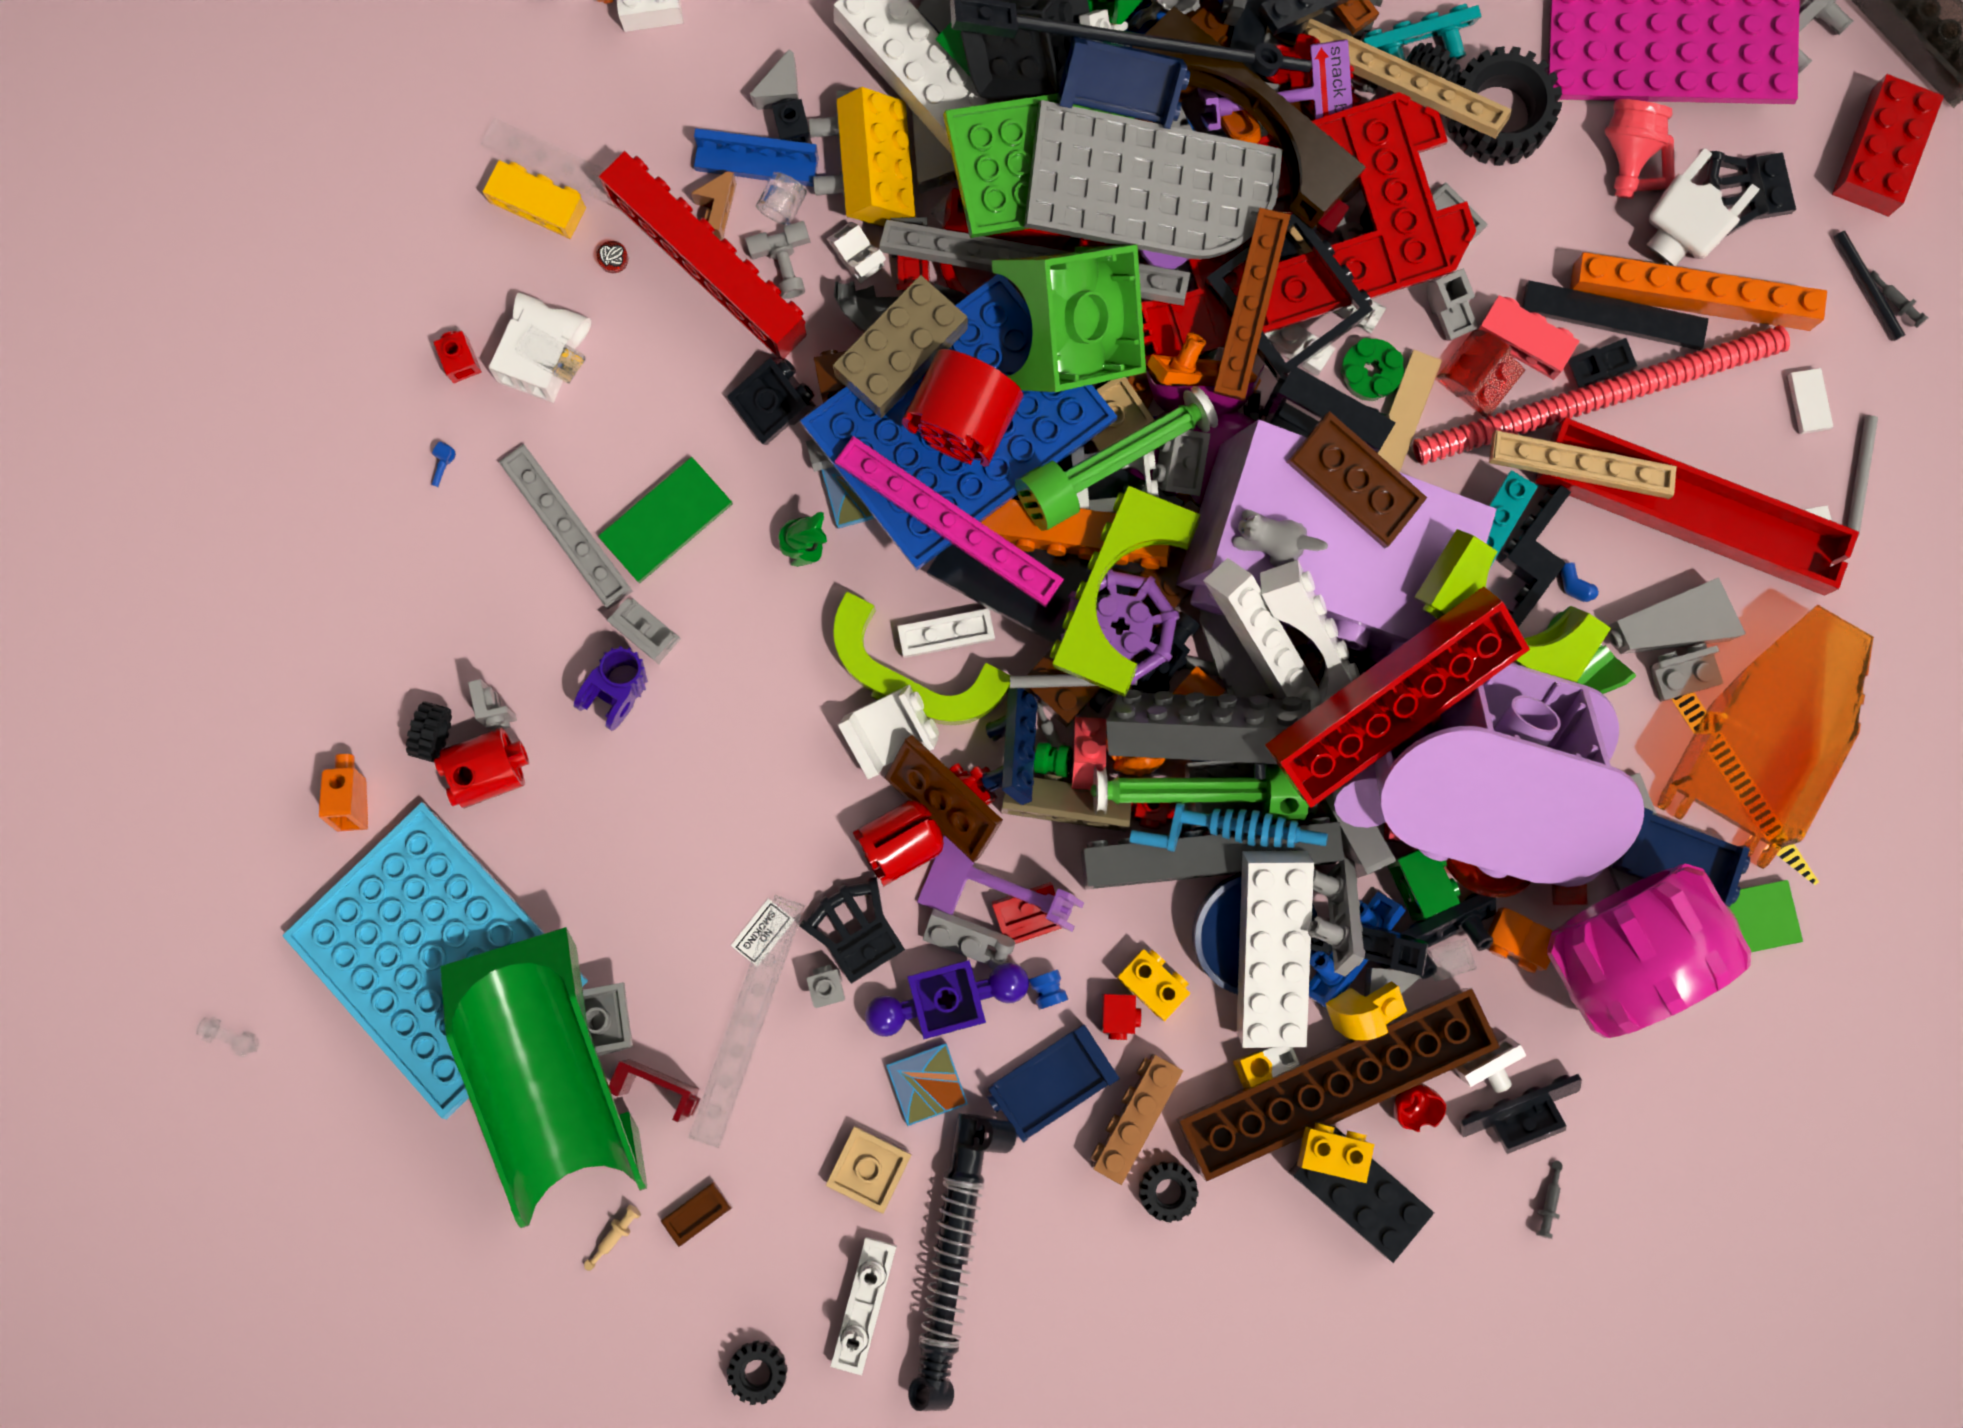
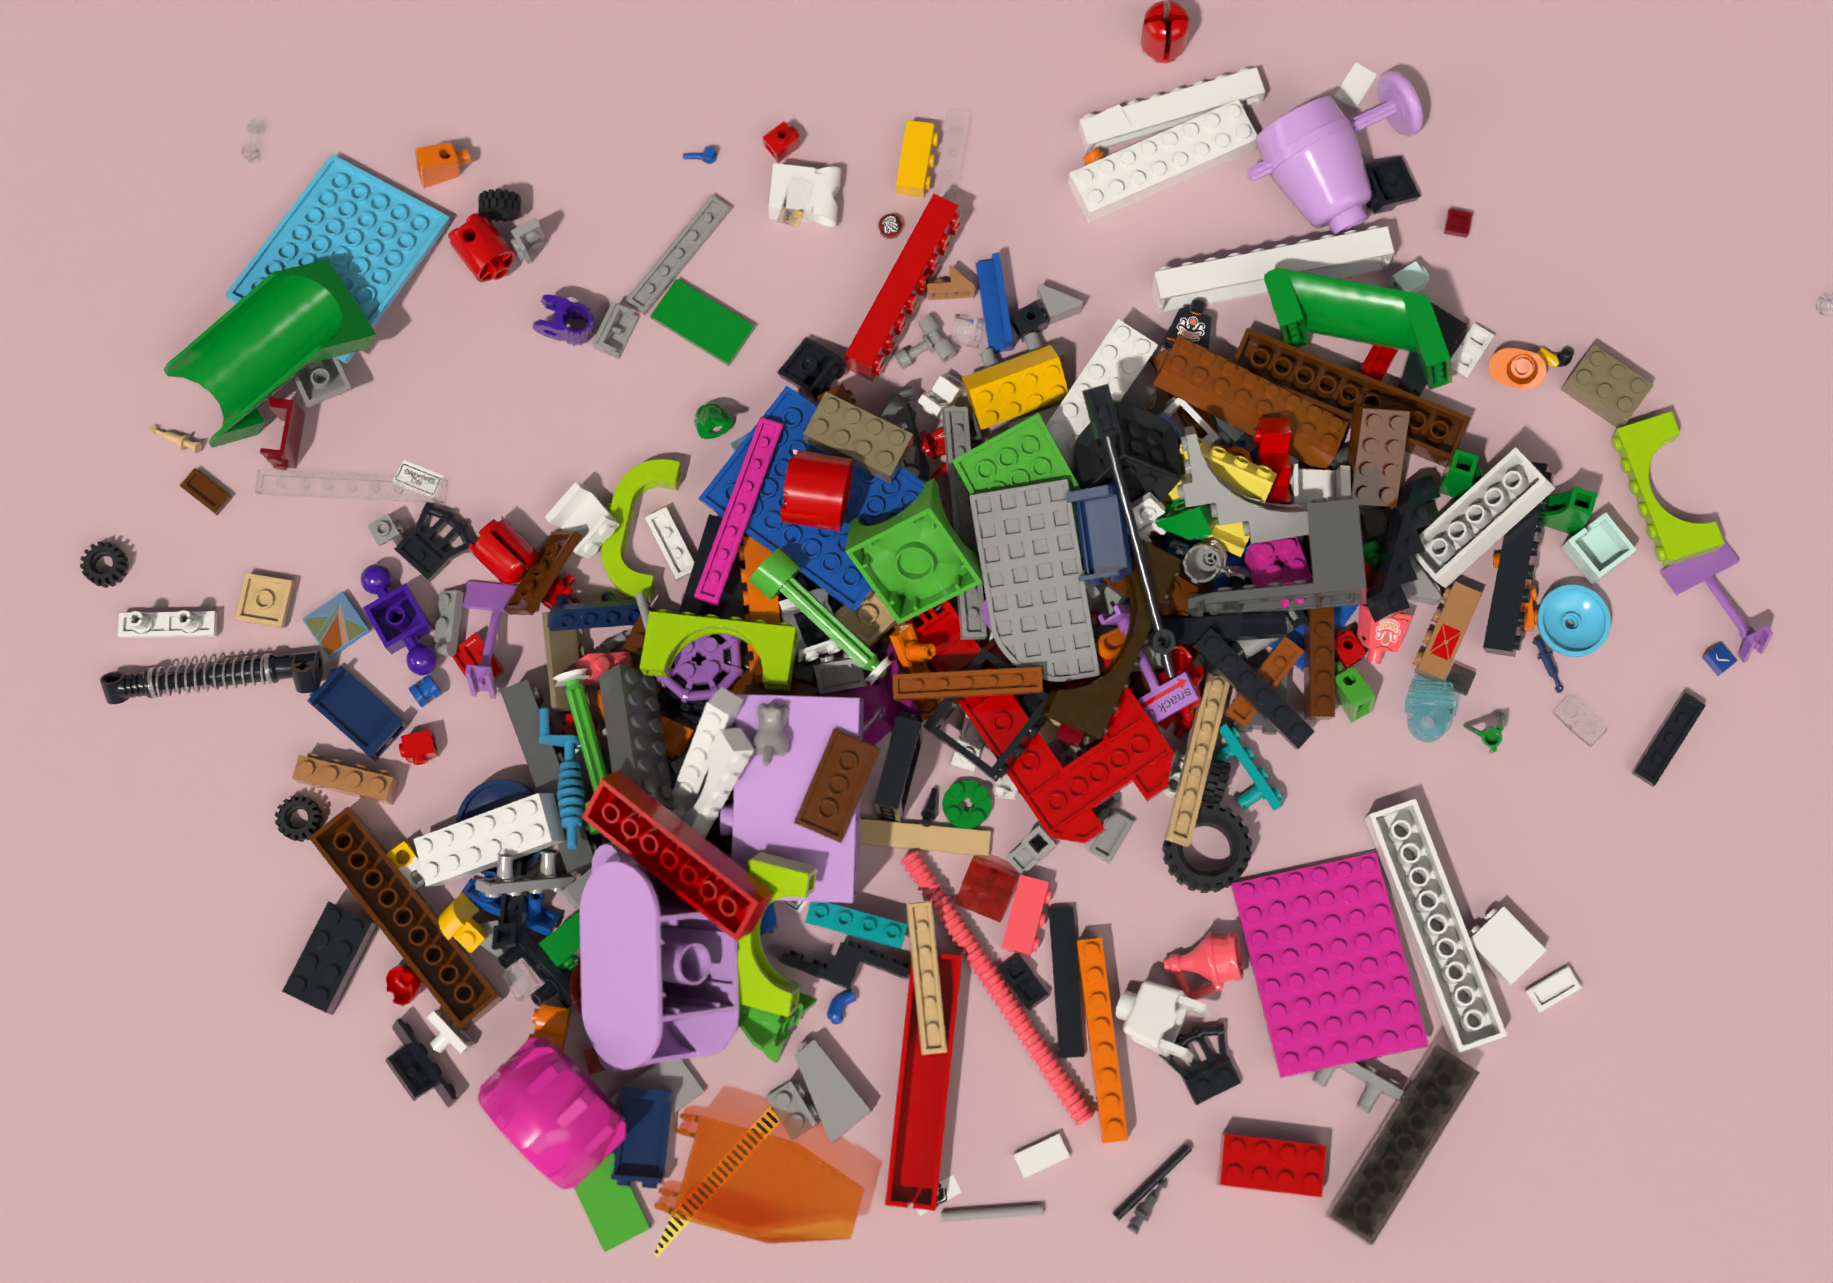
camera: 80 degrees right, 5 degrees down
(1053, 759) = (592, 641): green wheel -> none
(1154, 984) = (448, 765): yellow brick -> none
(1336, 1154) = (348, 922): yellow brick -> none
(1550, 1203) = (357, 1105): dark grey piece -> none

